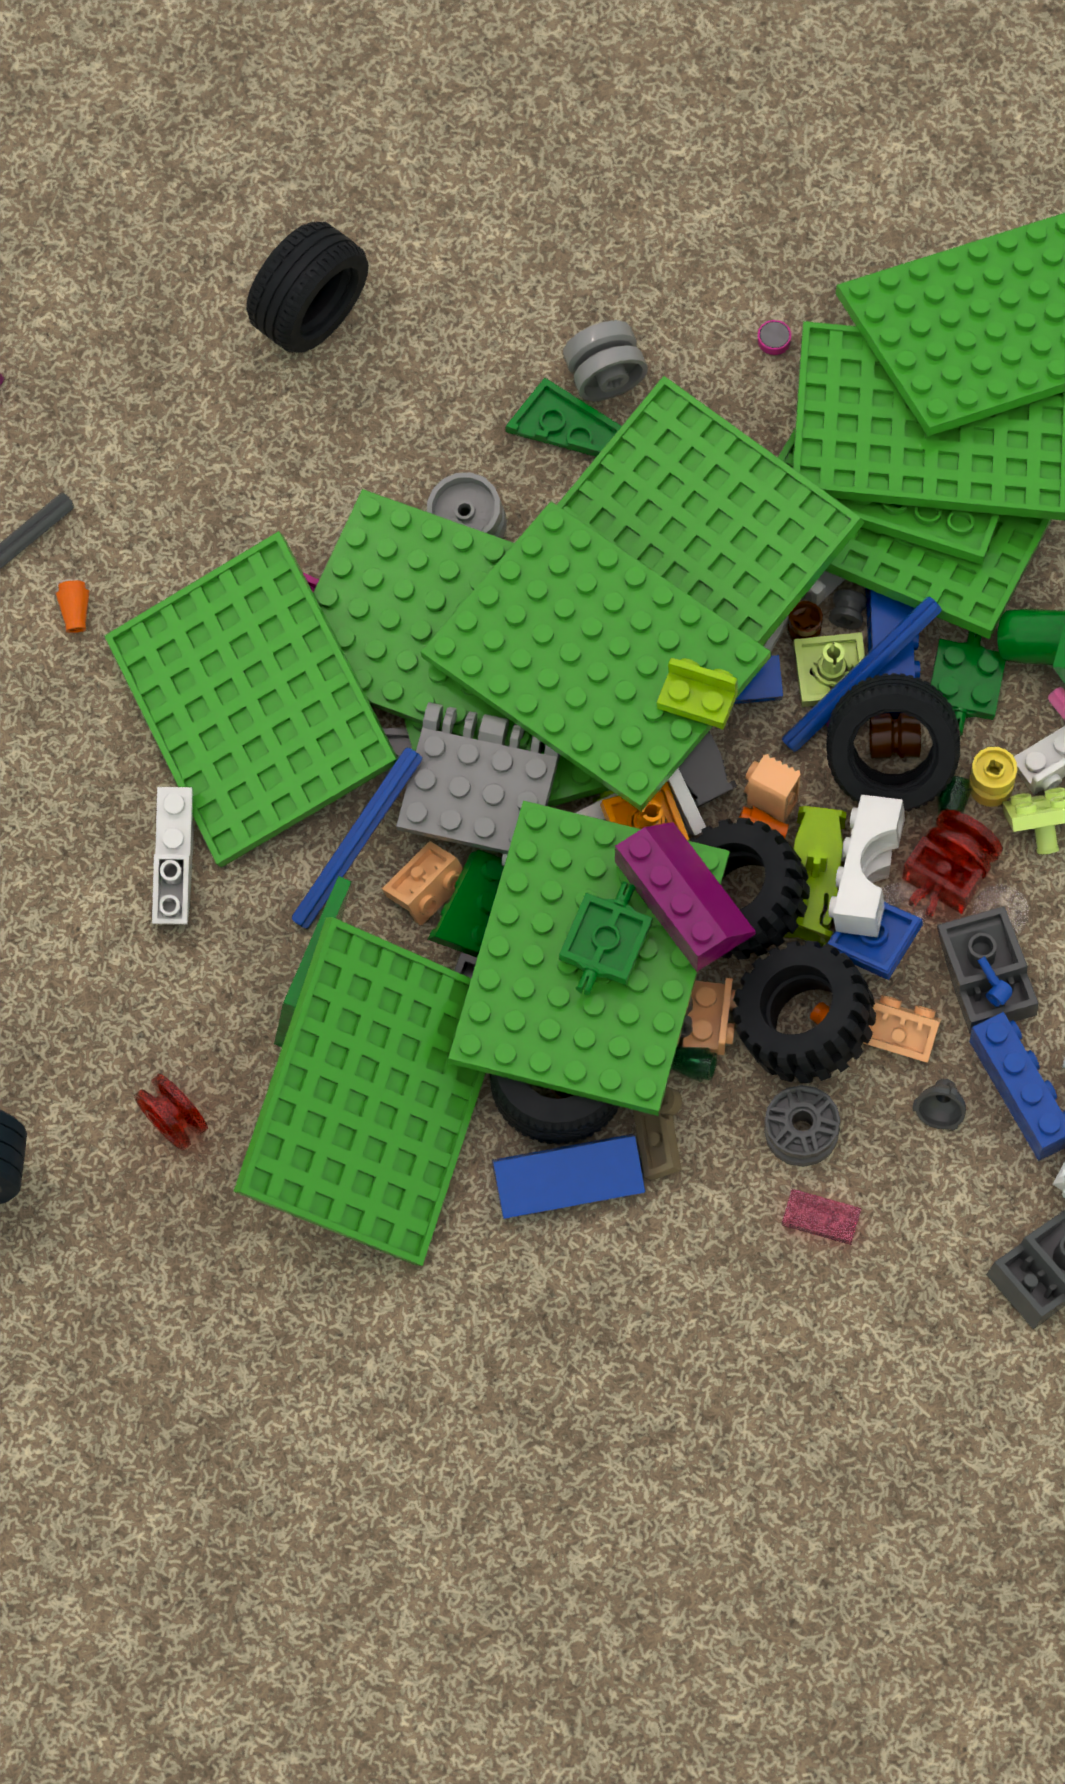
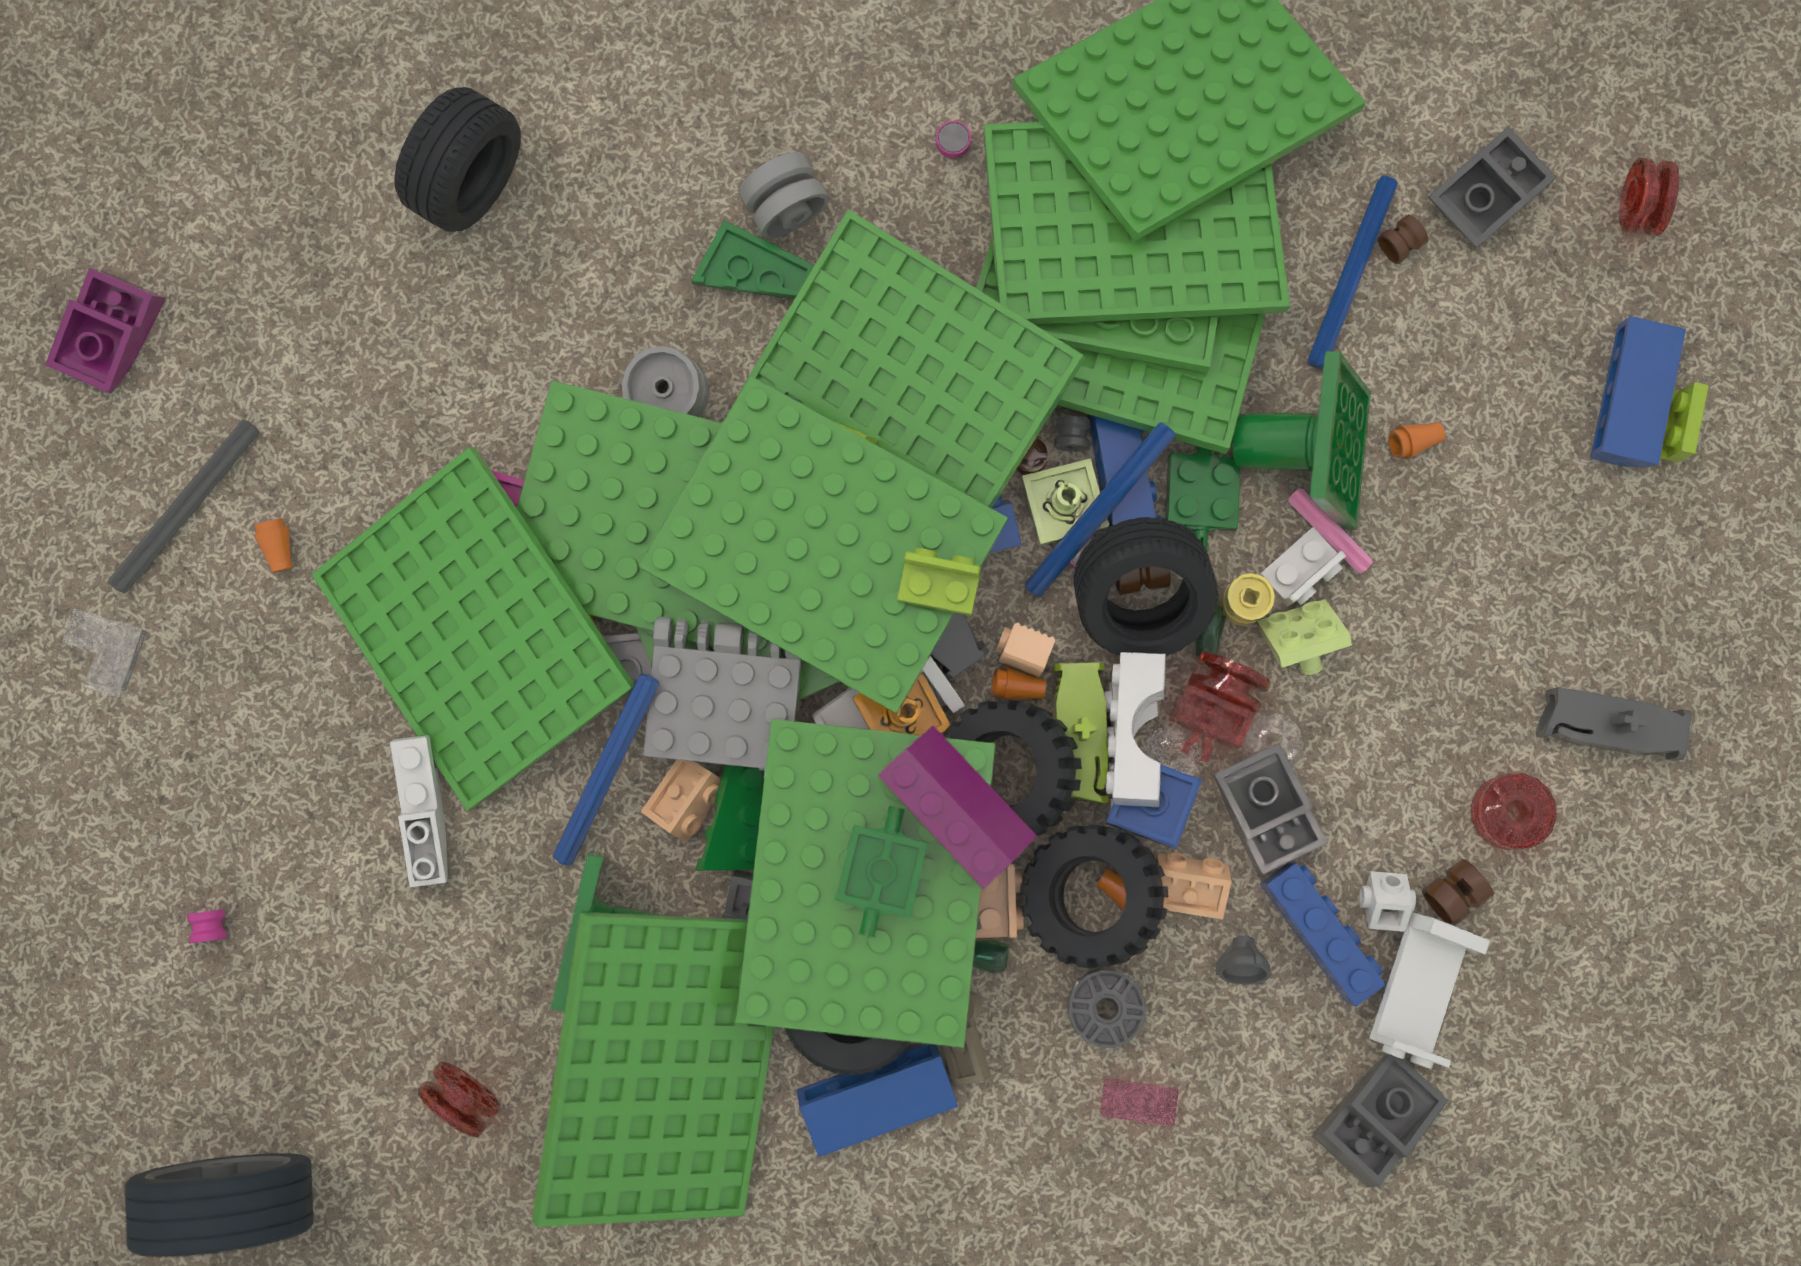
camera: 10 degrees left, 15 degrees up
(1000, 989) = (1289, 840): blue hand -> none

